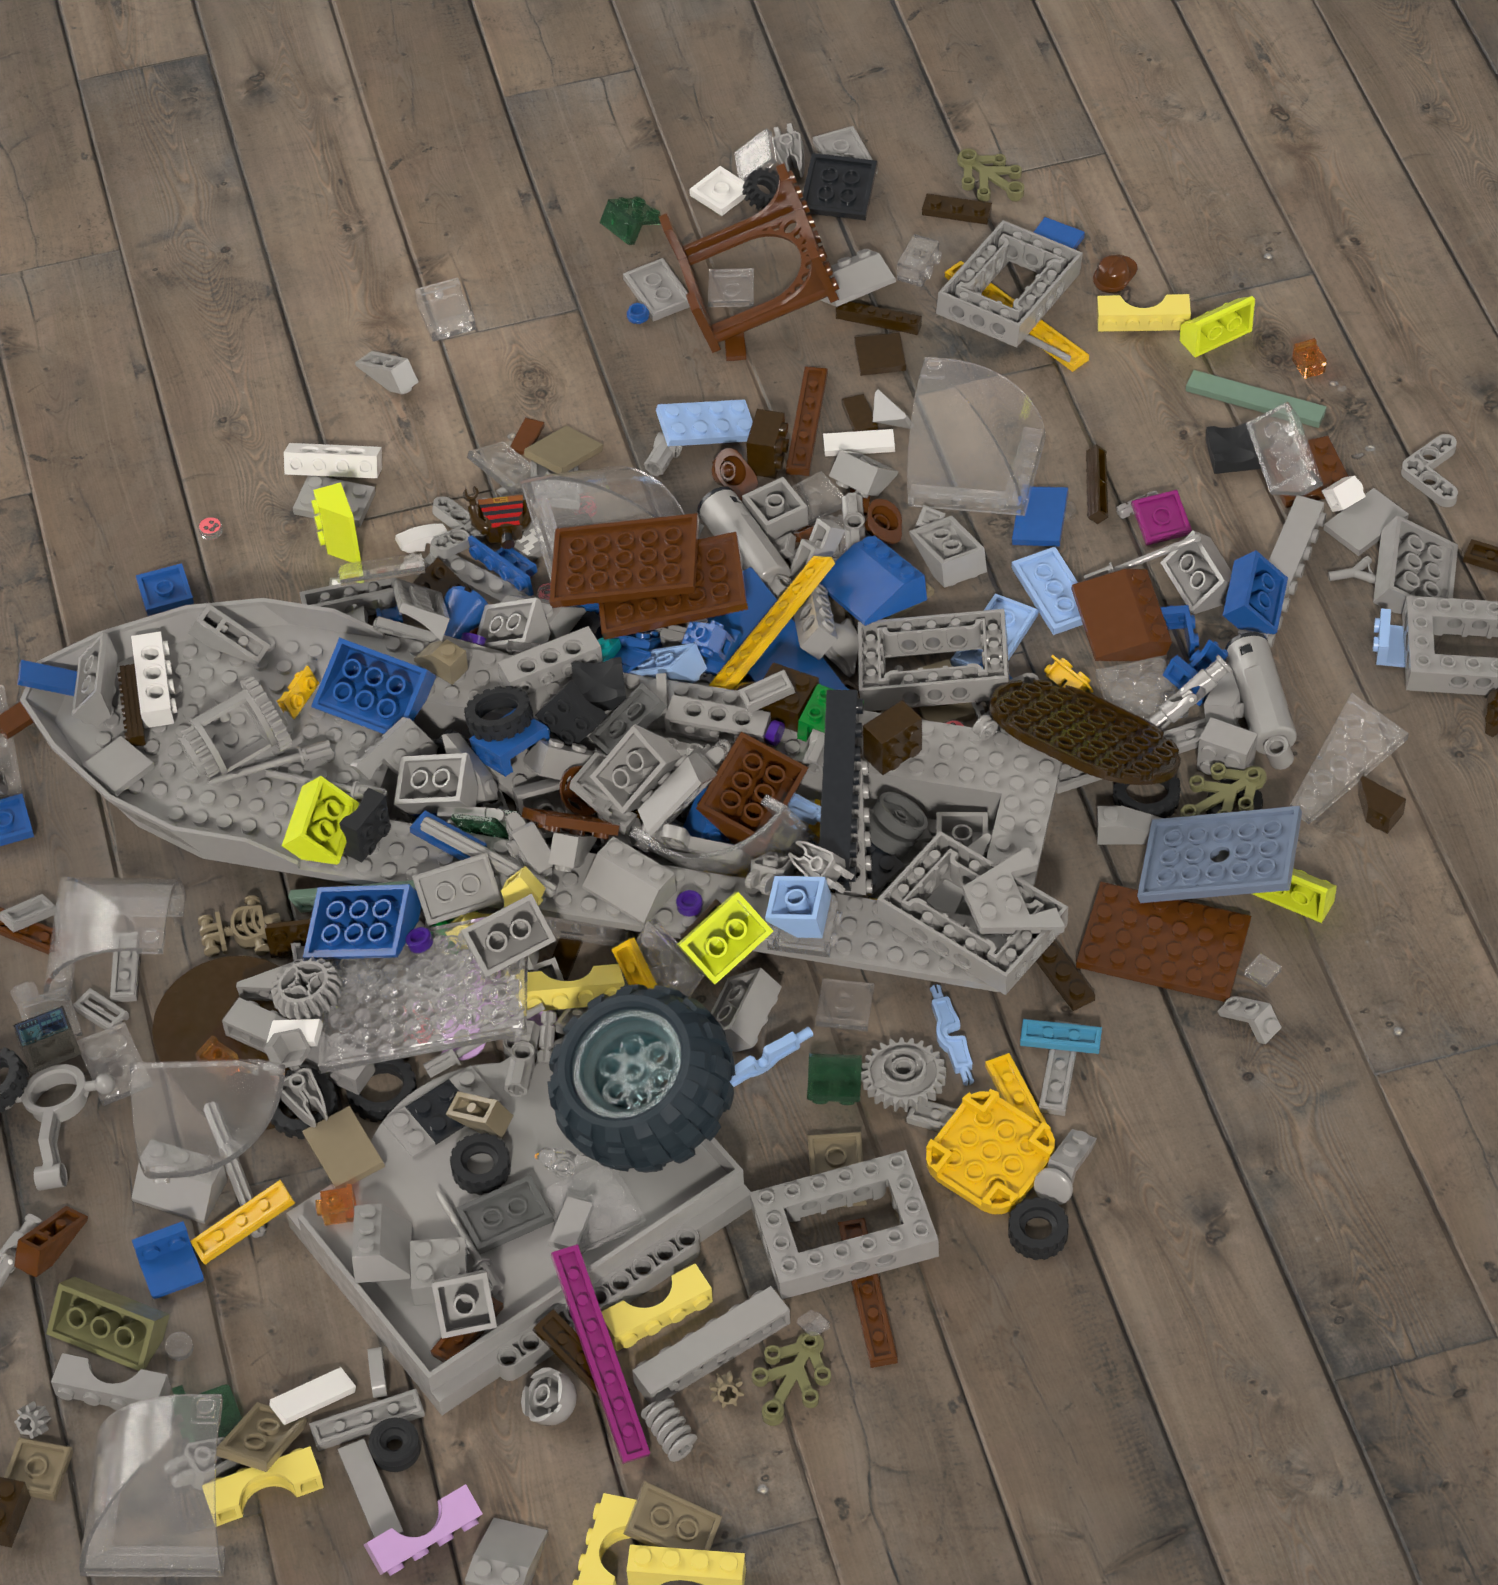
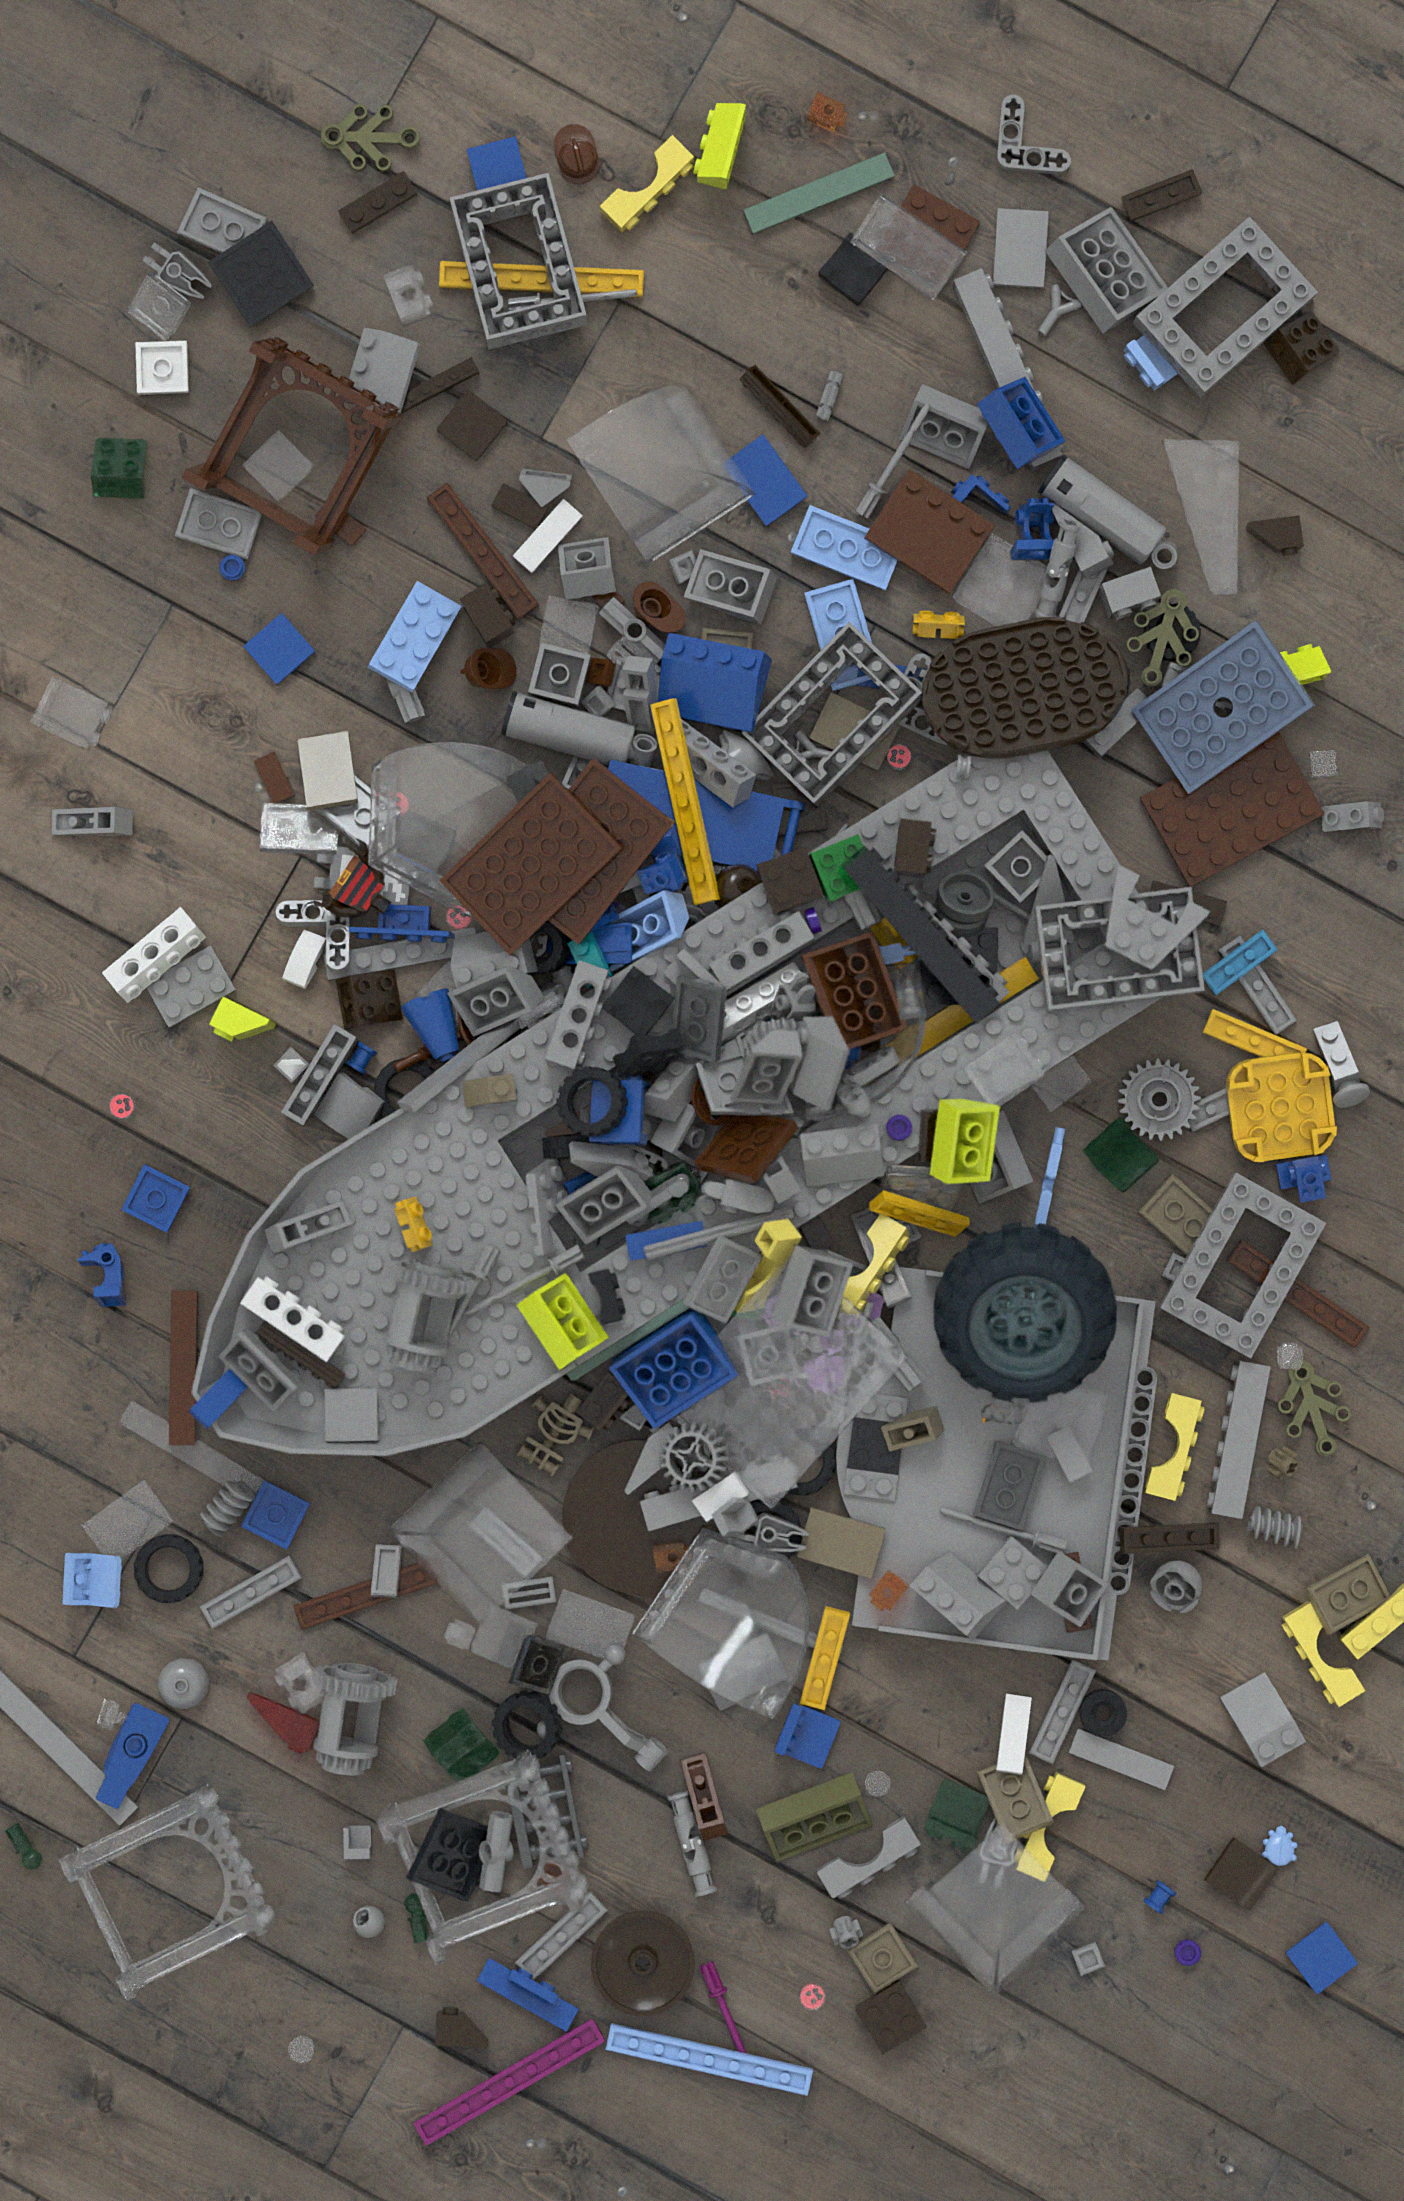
camera: 40 degrees left, 35 degrees up
(86, 599) = (111, 1291): none -> blue tile
(371, 687) = (469, 1167): blue slope -> none
(377, 1372) = (1035, 1674): light grey beam -> none
(381, 568) = (318, 1028): clear piece -> none
(419, 940) = (735, 1343): dark purple tile -> none
(422, 605) = (417, 1053): light grey arch -> none
(454, 1512) = (1187, 1785): lavender arch -> none
(473, 638) = (476, 1037): dark purple tile -> none
(475, 1145) = (968, 1472): black tyre -> none
(546, 1038) = (892, 1321): light grey axle -> none
(600, 1354) = (1184, 1526): magenta plate -> none
(614, 375) = (279, 649): none -> blue tile
(754, 194) = (212, 327): black tyre -> none
(765, 868) = (939, 1052): light grey hinge -> none
(766, 691) = (783, 899): light grey tile -> none
(799, 905) = (994, 1066): light blue slope -> none
(822, 864) = (976, 1017): light grey hinge -> none
(955, 1046) = (1167, 1038): light blue piece -> none
(955, 1201) = (1306, 1175): none -> blue tile
(1032, 1247) = (1382, 1121): black tyre -> none
(1161, 517) = (862, 395): magenta tile -> none
(1344, 493) = (985, 239): white brick -> none

